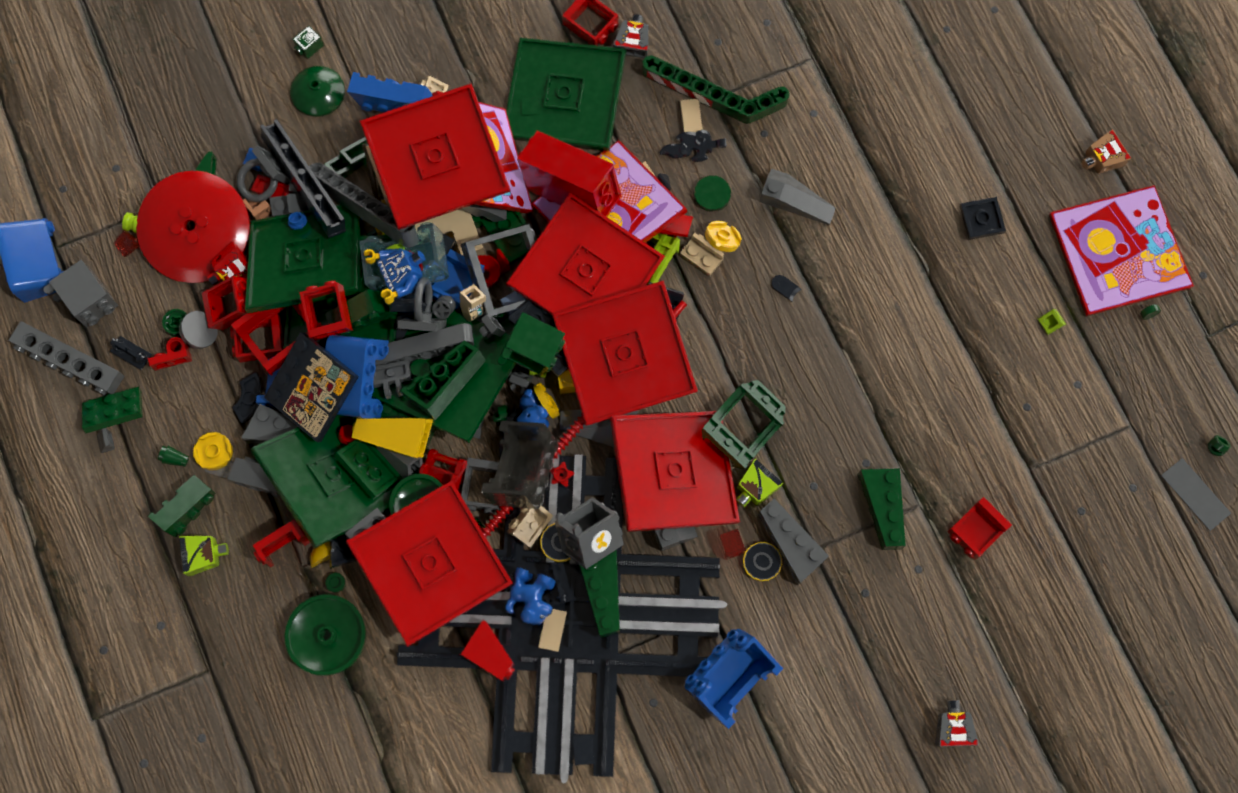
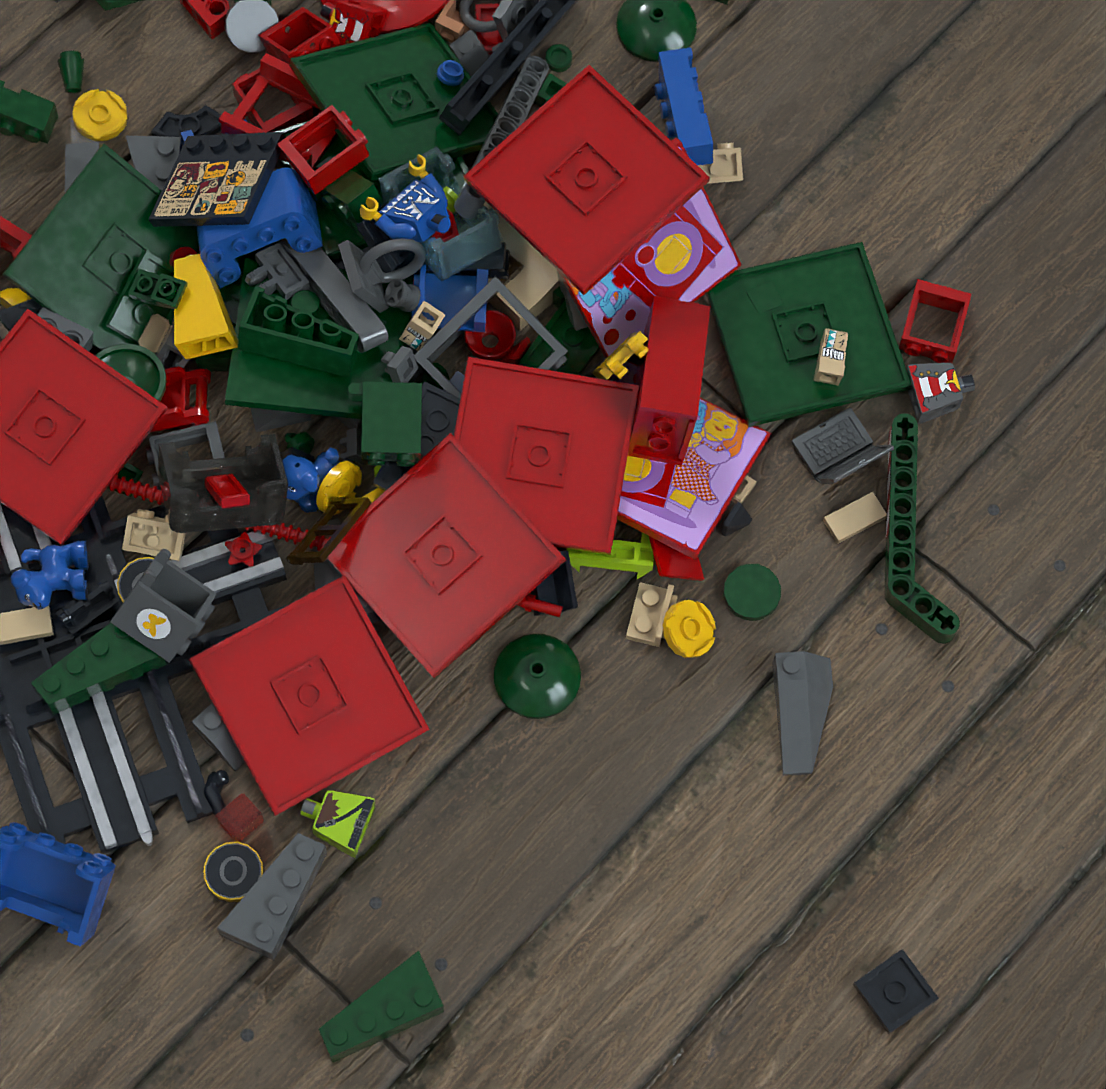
camera: 65 degrees right, 5 degrees down
(312, 155) = (558, 58): none -> dark green tile
(369, 454) = (157, 289): none -> dark green slope
(390, 472) = (154, 333): none -> tan piece
(526, 465) = (227, 490): none -> red tile
(541, 197) = (614, 362): none -> yellow tile
(585, 405) = (320, 528): none -> dark brown window
(590, 83) = (831, 357): none -> tan leg
(648, 107) = (837, 448): none -> dark grey piece
(699, 141) = (822, 540): black piece -> none
(707, 554) = (213, 789): none -> black arm
(709, 347) = (531, 693): none -> dark green dish
(731, 445) = (381, 750): dark green wedge -> none
(785, 287) = (657, 748): black piece -> none

